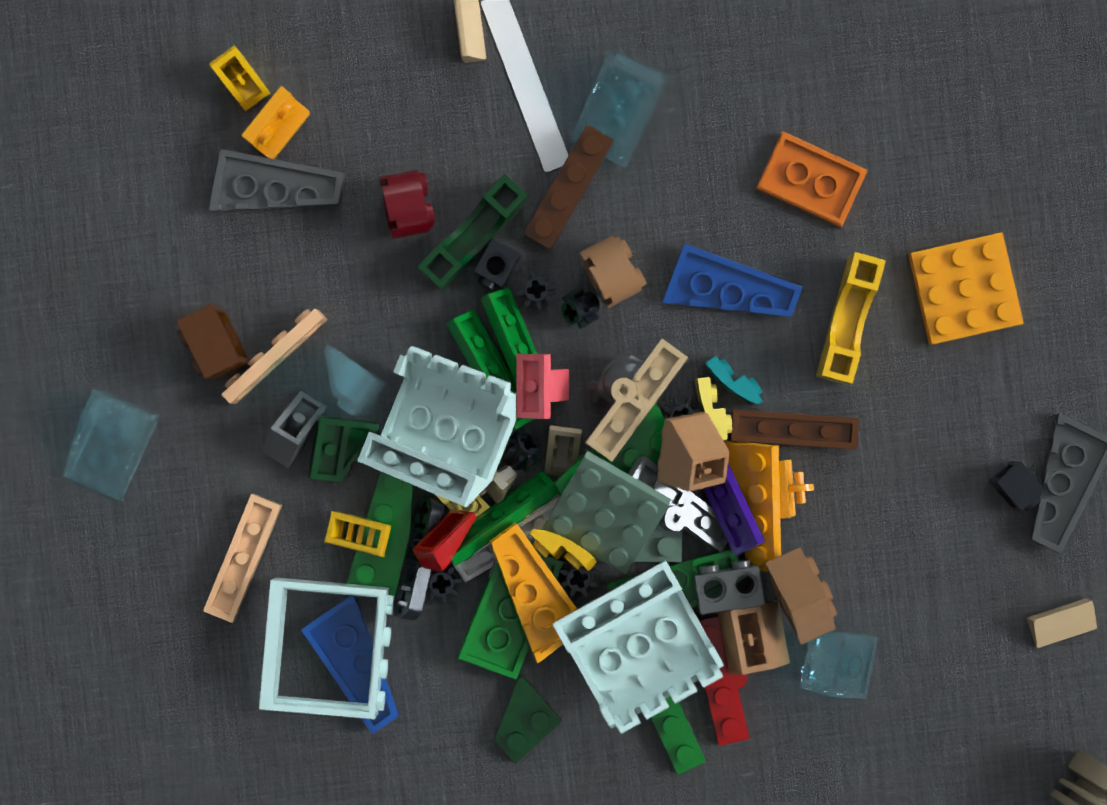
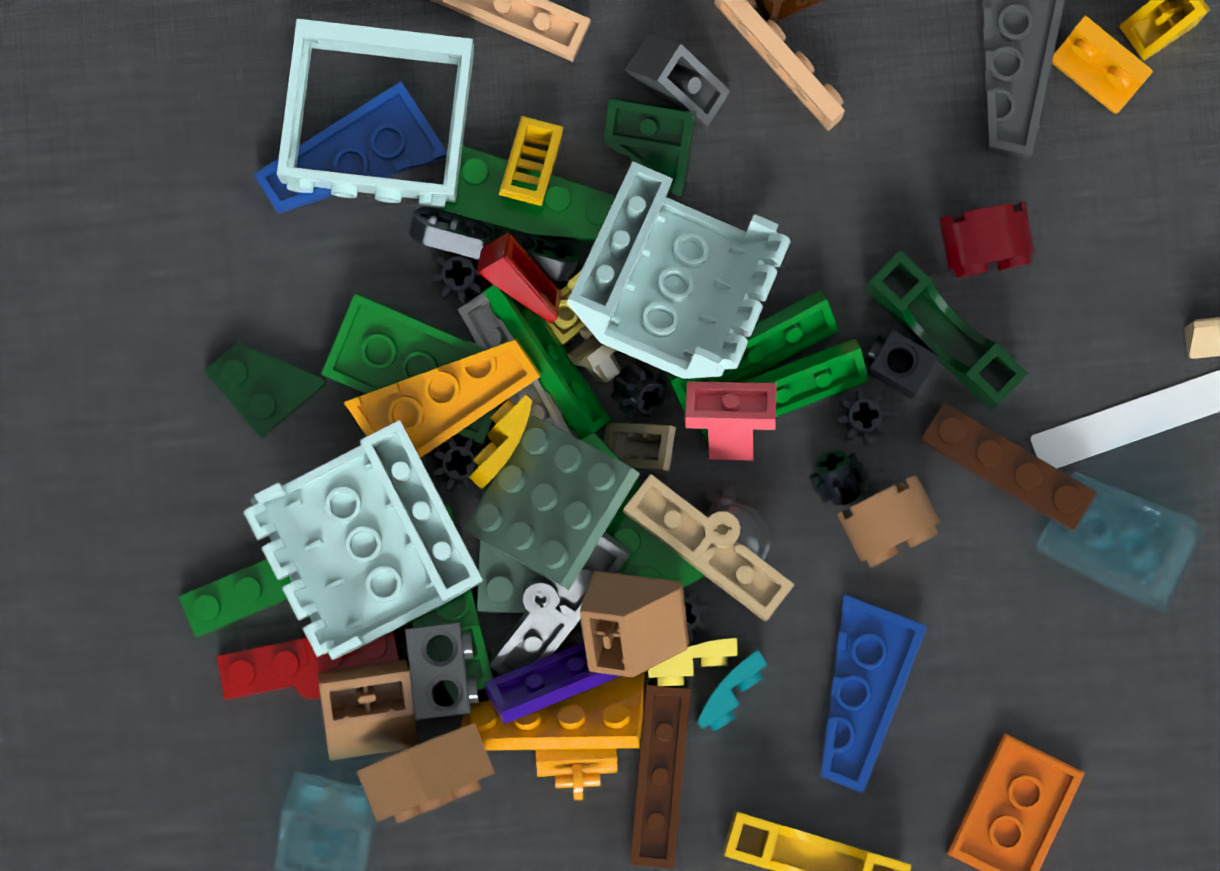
camera: 90 degrees right, 5 degrees down
(352, 382) = (740, 158): clear light blue slope -> none

